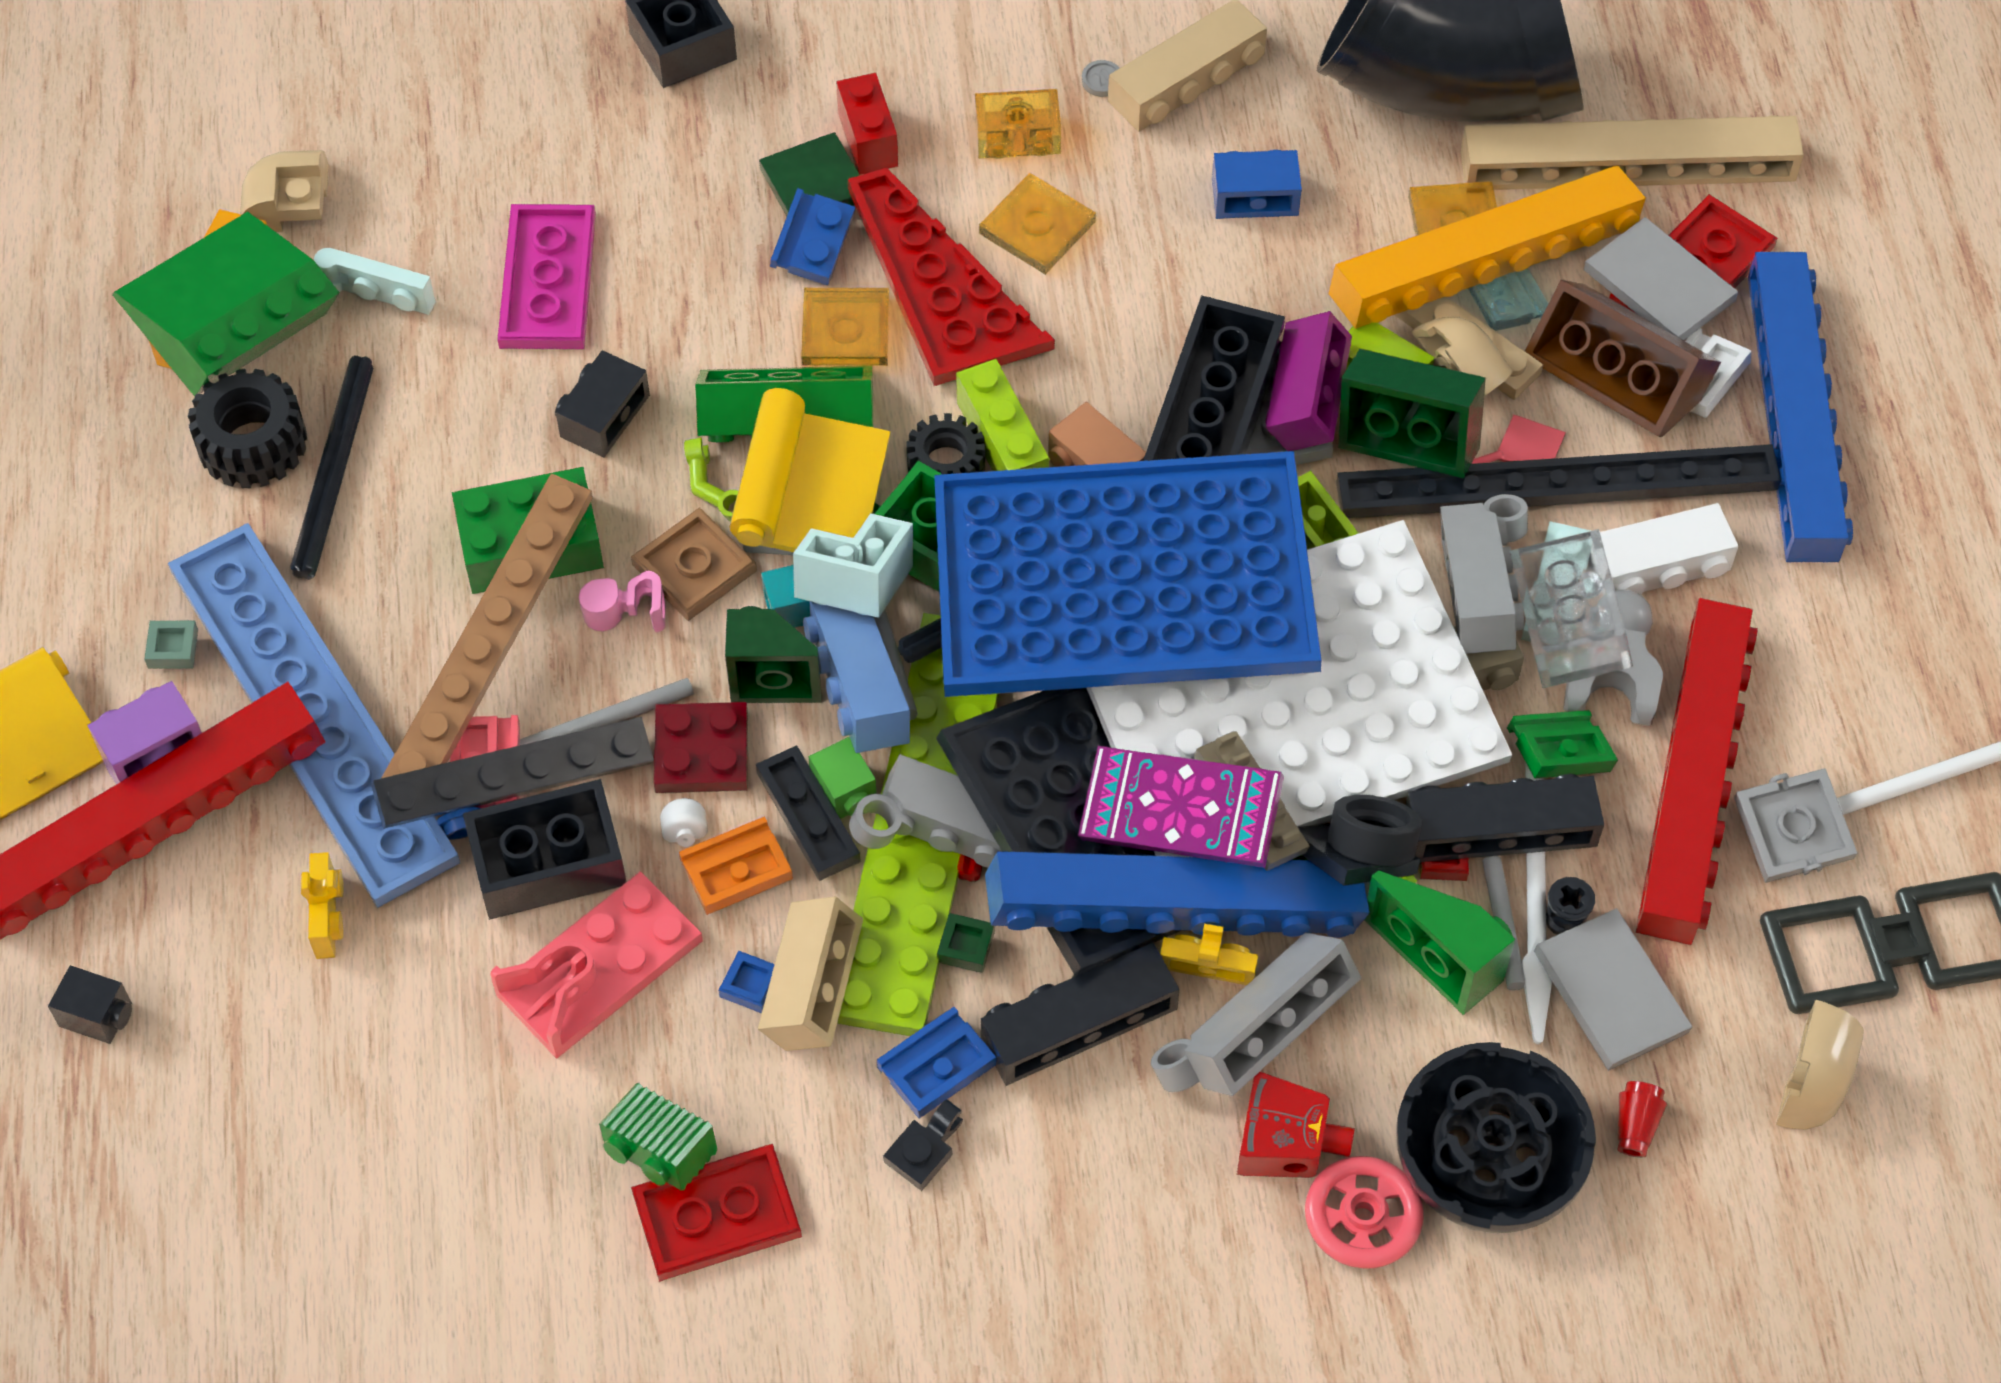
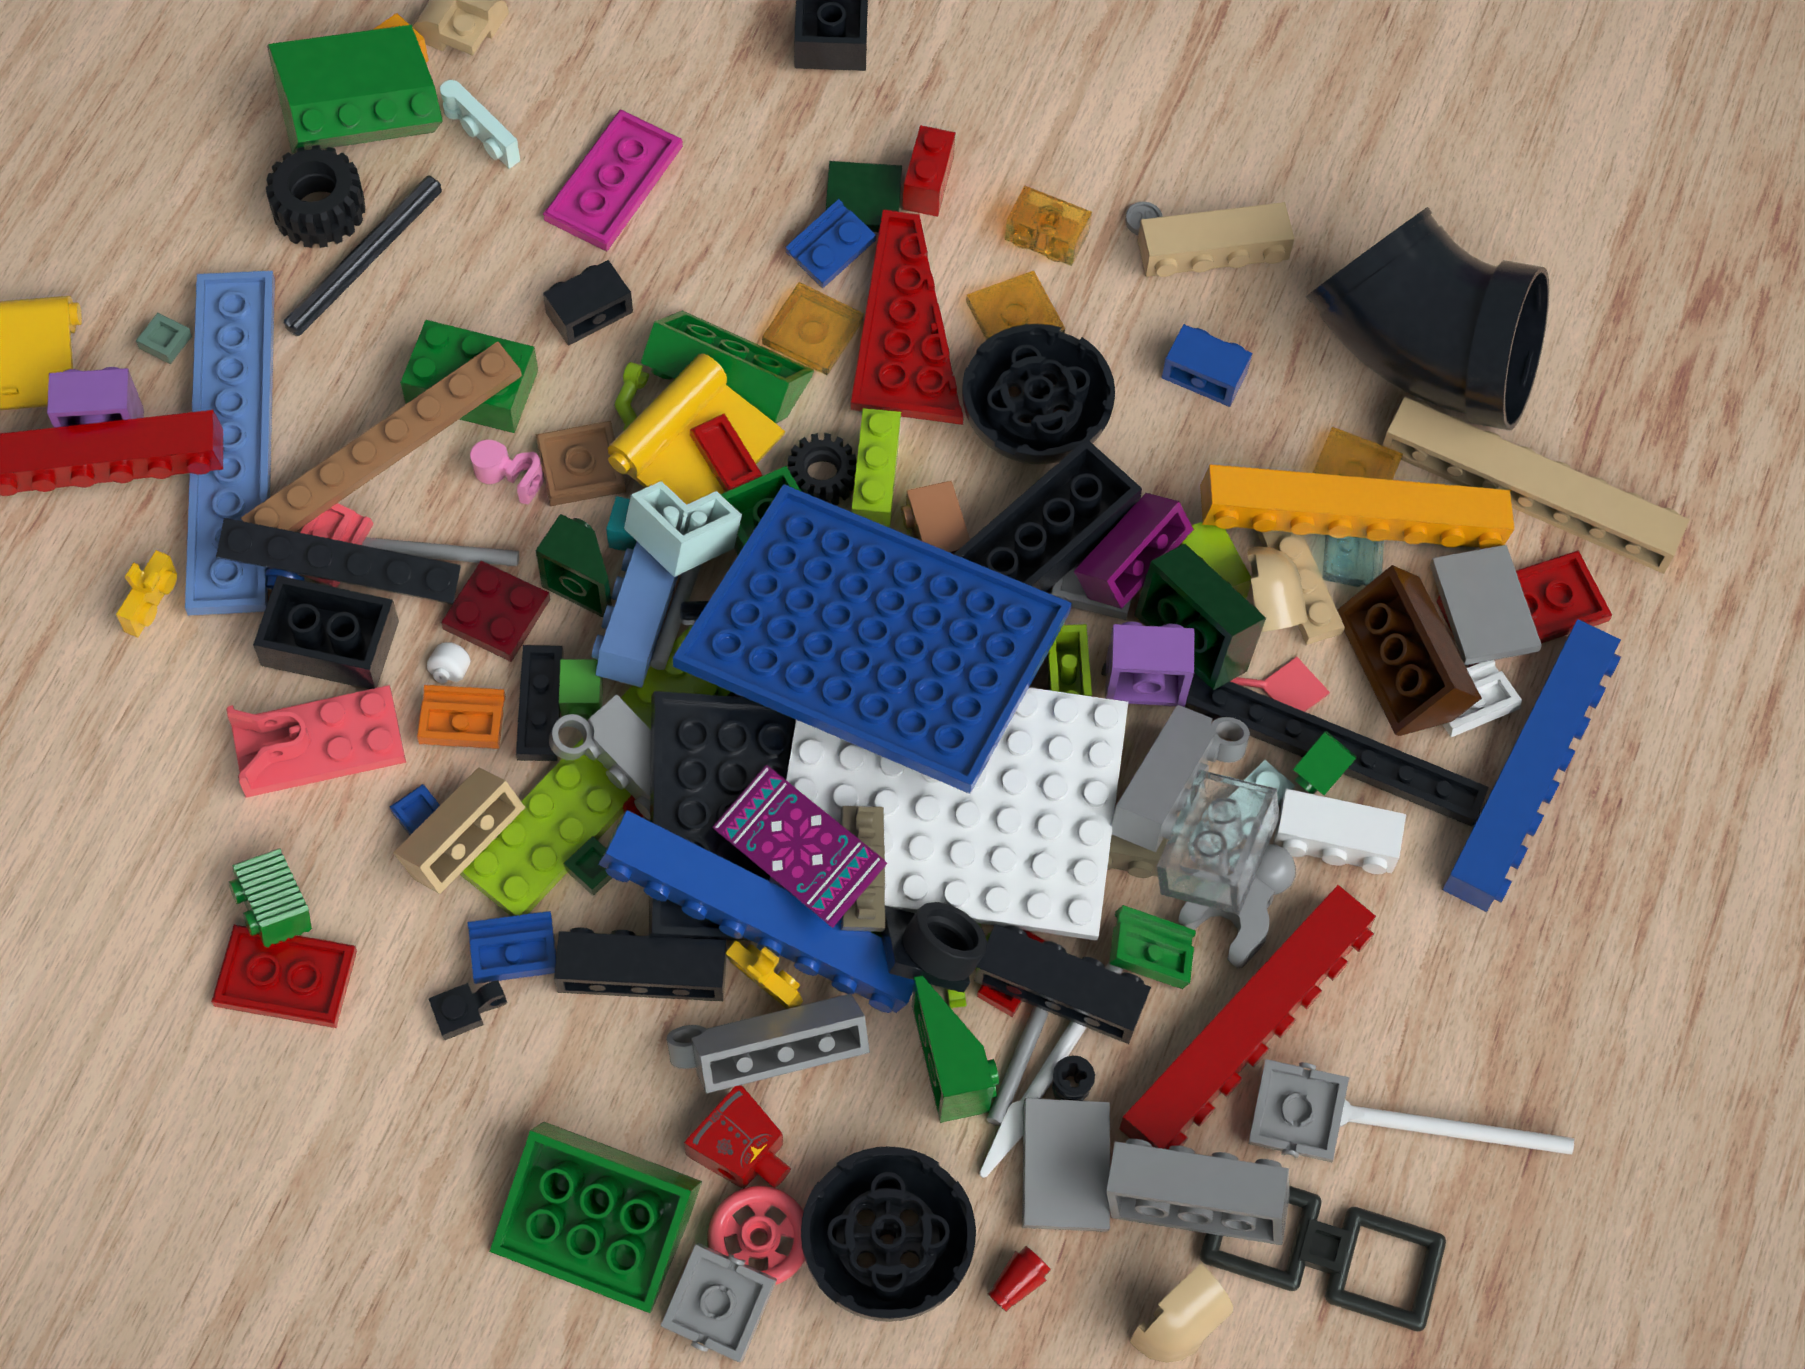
camera: 25 degrees right, 5 degrees up
(847, 478) = (725, 453): none -> red tile
(1115, 259) = (1033, 361): none -> black brick
(1193, 1277) = (595, 1216): none -> green slope
(1370, 1292) = (718, 1302): none -> light grey plate
(1398, 476) = (1150, 664): none -> medium lavender brick
(1613, 494) = (1323, 764): none -> green brick
(1763, 941) = (1198, 1191): none -> light grey brick

